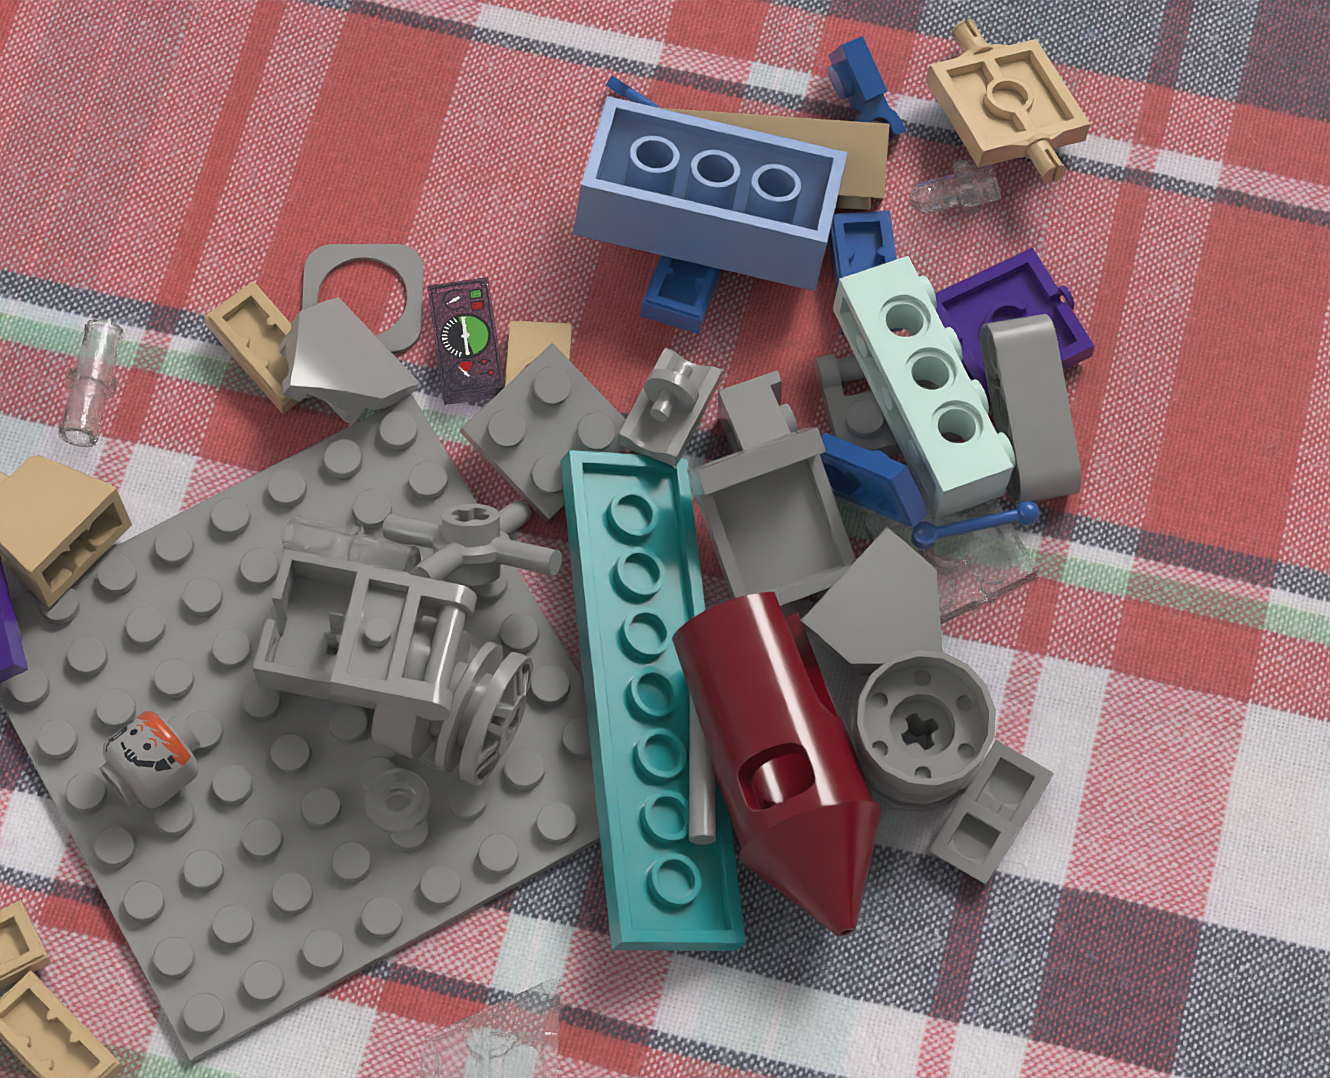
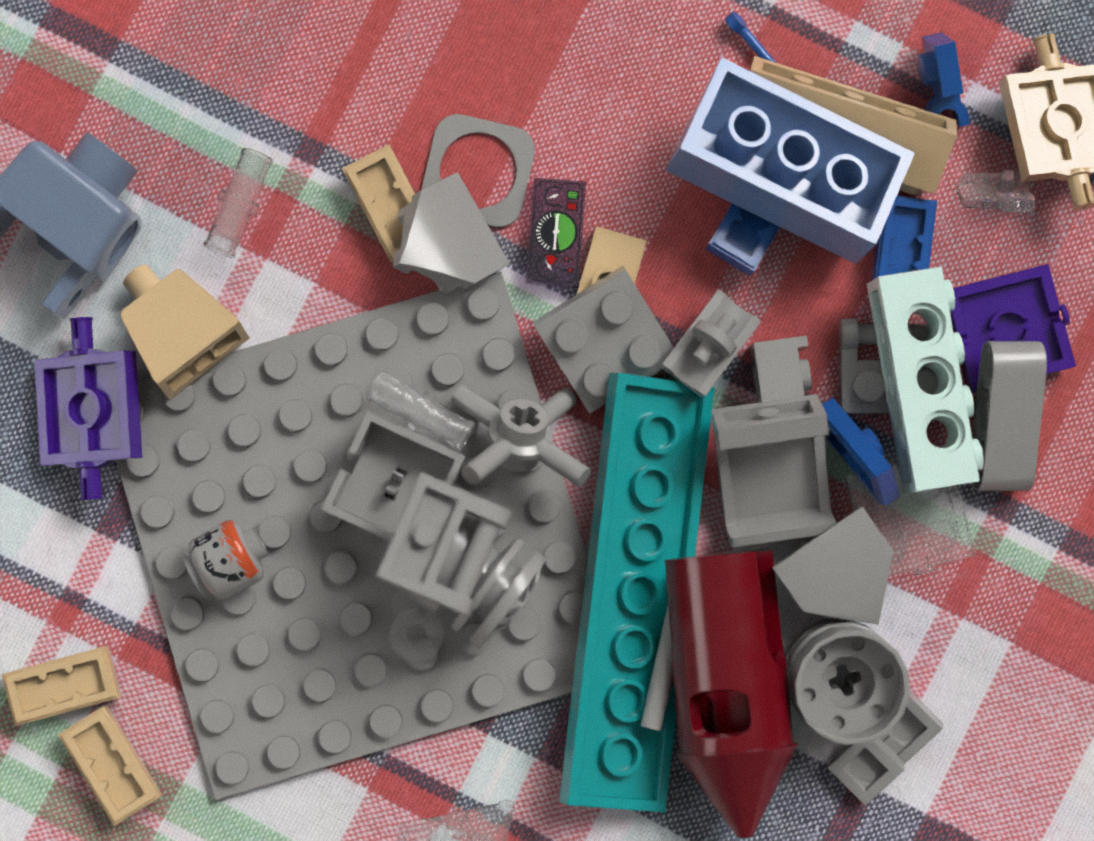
camera: 10 degrees right, 20 degrees up
(925, 533) = (978, 505): blue hinge -> none

